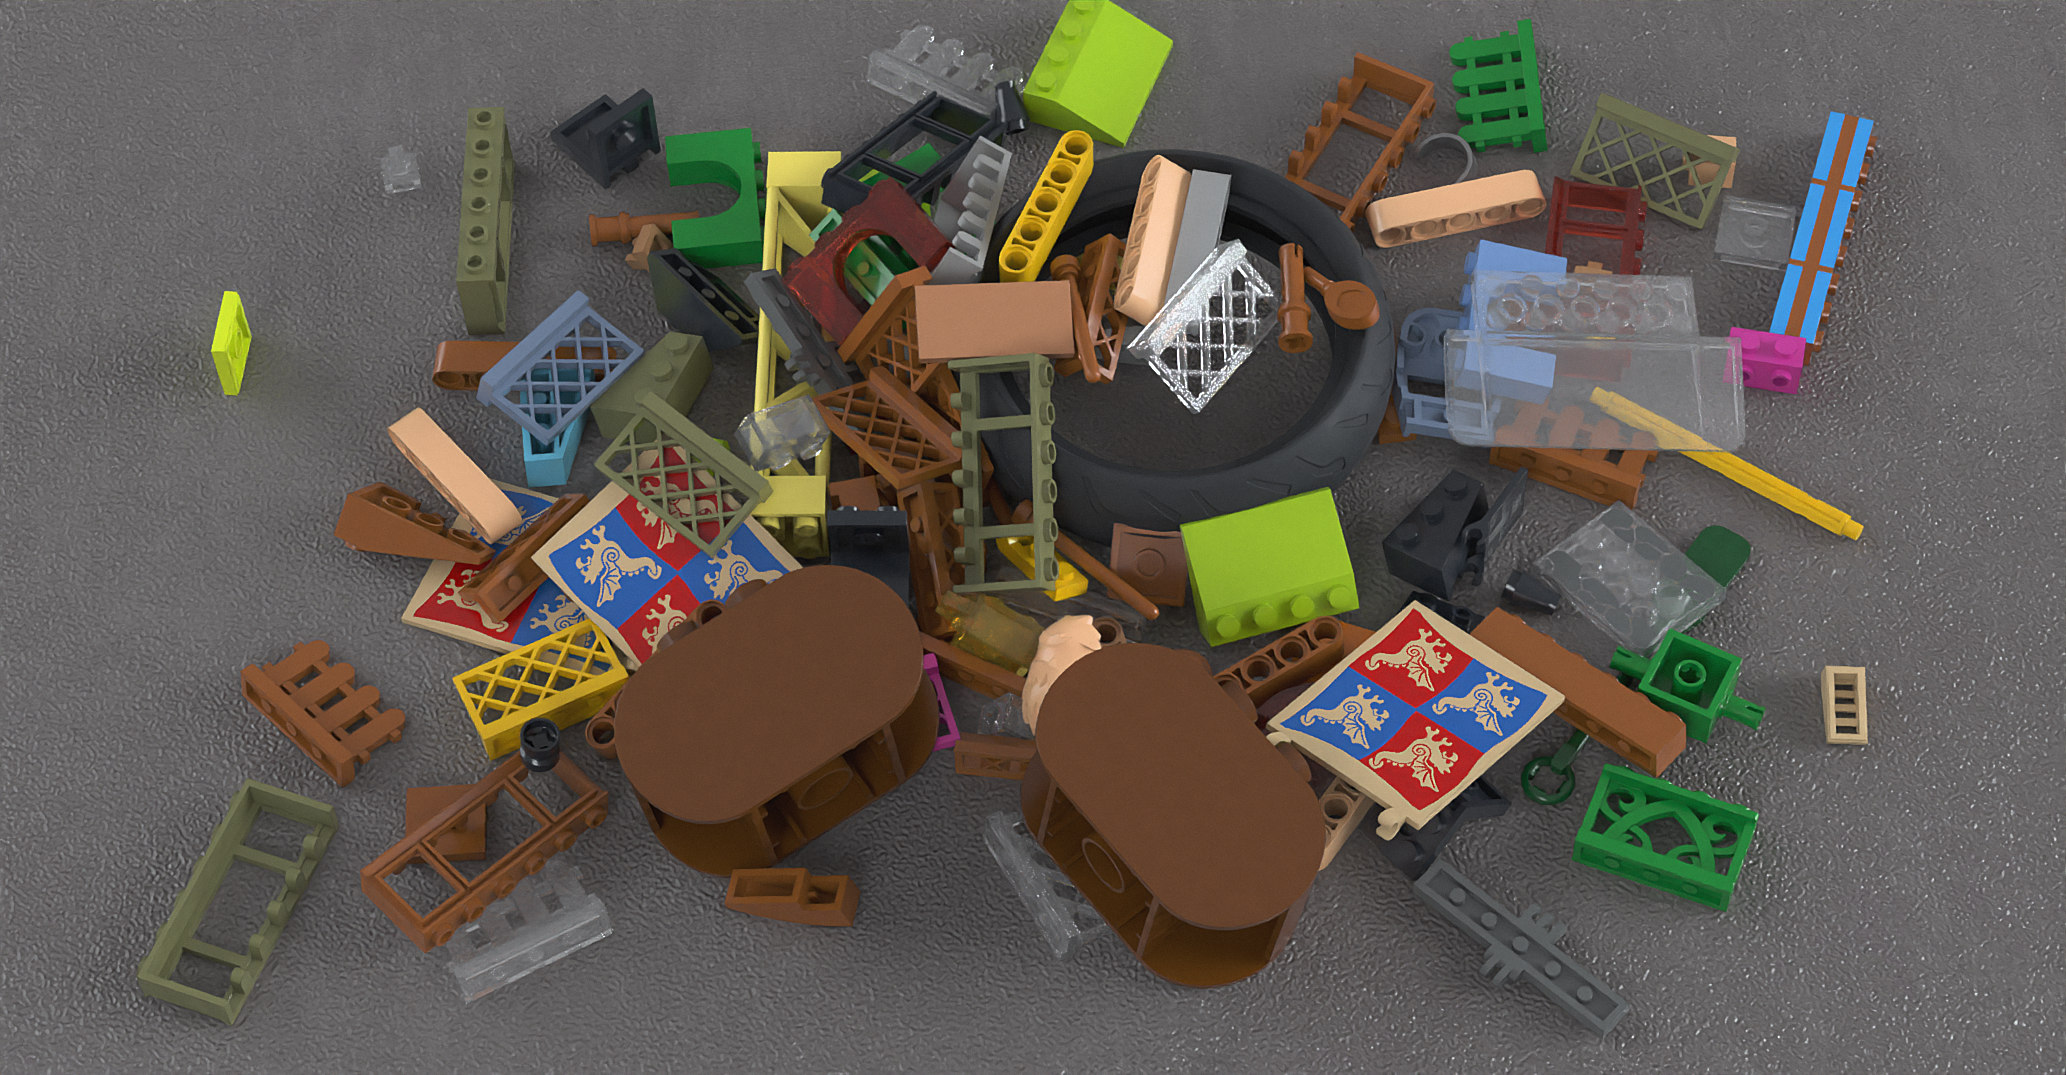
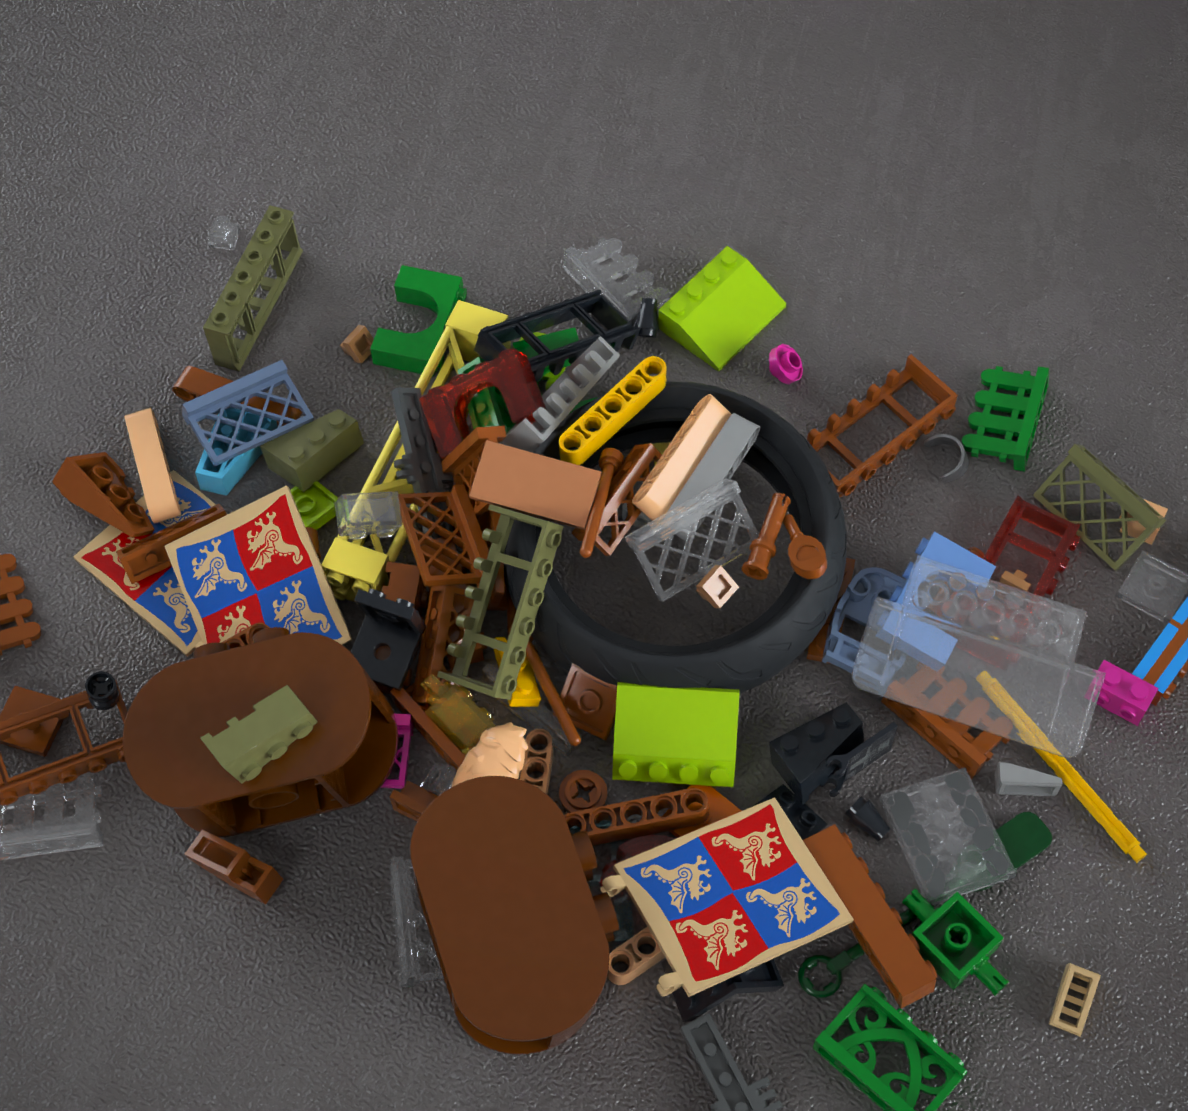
camera: 20 degrees right, 5 degrees up
(231, 343) = (50, 321): neon yellow plate -> none
(561, 707) = (134, 663): yellow fence -> none
(610, 135) = (366, 253): black bracket -> none
(624, 228) = (349, 321): dark orange pin -> none
(700, 302) = (368, 391): black wedge -> none
(703, 448) = (303, 505): olive fence -> none
(803, 695) = (261, 735): none -> olive wedge
(1206, 111) = (785, 364): none -> dark pink plate
(1258, 373) = (716, 586): none -> tile
(1455, 208) = (936, 495): light nougat beam -> none
(1694, 492) = (1018, 780): none -> light grey slope

